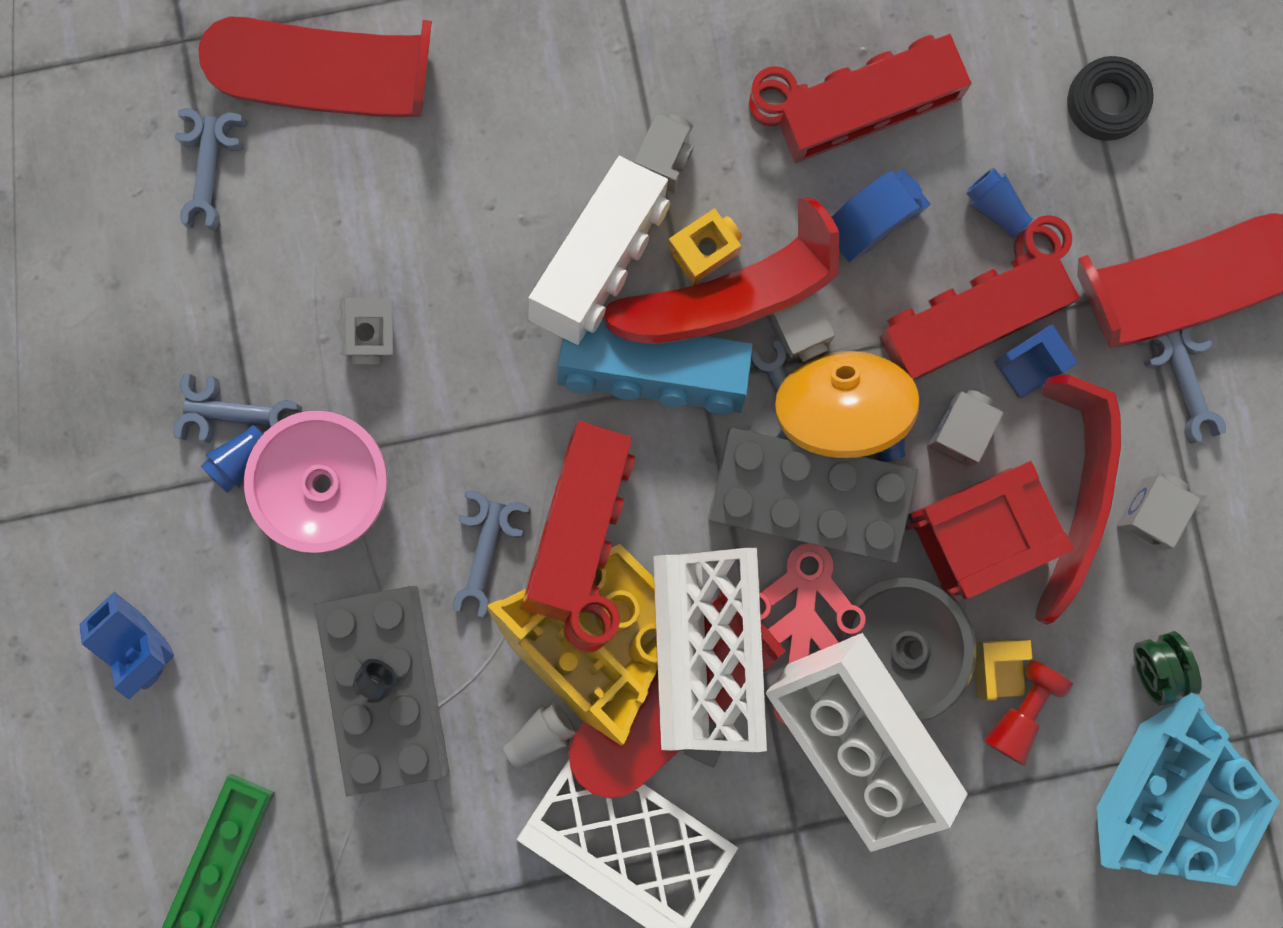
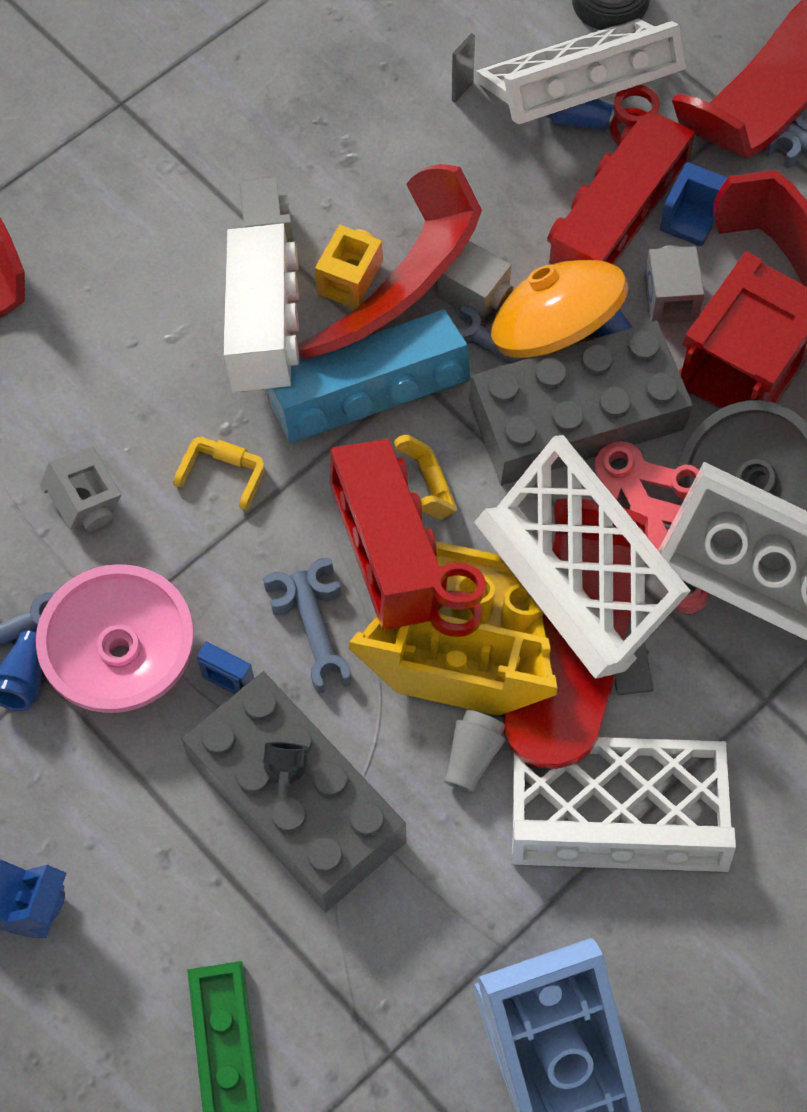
camera: 30 degrees left, 20 degrees down
(389, 555) = (224, 668): none -> blue tile
(506, 361) = (227, 453): none -> yellow piece
(655, 486) = (440, 502): none -> yellow piece
(863, 99) = (403, 96): red hinge -> none
(878, 212) = (482, 155): blue brick -> none
(922, 107) = (463, 67): none -> dark grey window
(1012, 185) = (585, 68): none -> white fence

